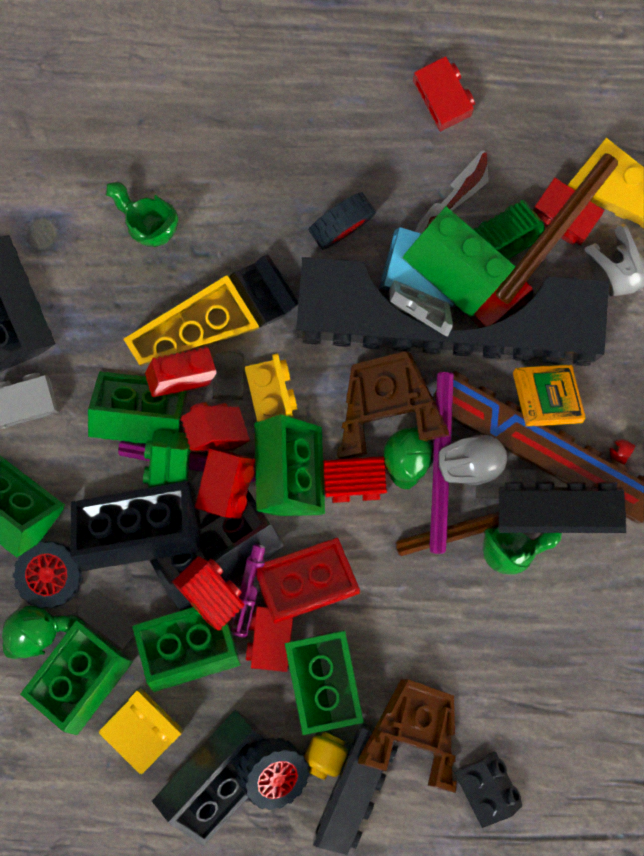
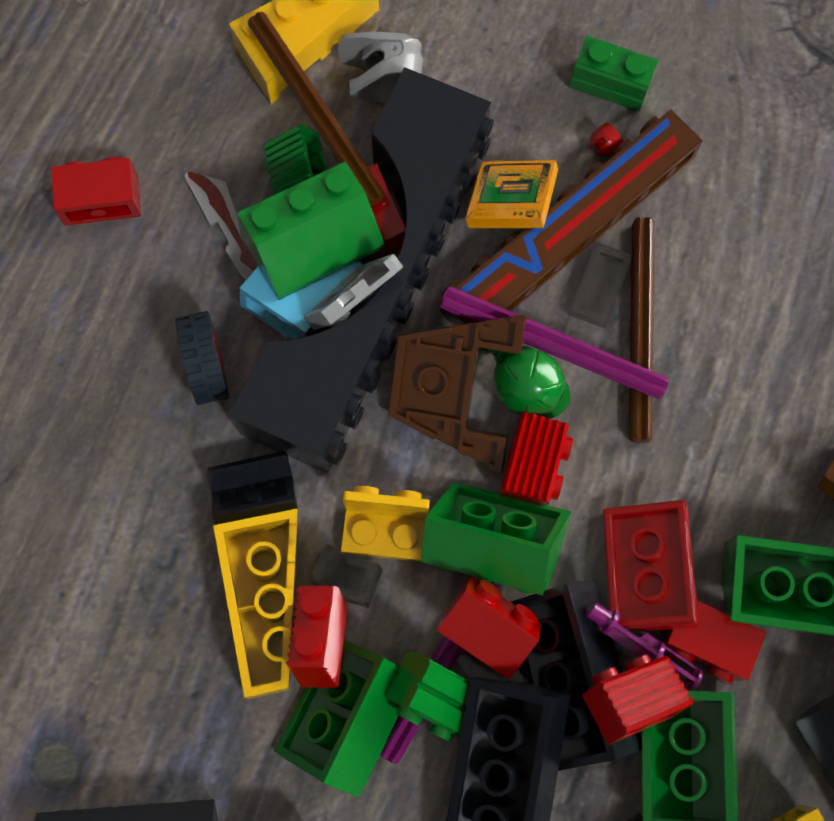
camera: 75 degrees left, 10 degrees down
(147, 219) = (96, 610): green piece -> none
(214, 427) = (409, 615): red brick -> none
(472, 460) = (564, 302): light grey helmet -> none
(514, 551) = (692, 300): green piece -> none
(552, 202) = (280, 109): red brick -> none
(562, 508) = (663, 216): black slope -> none

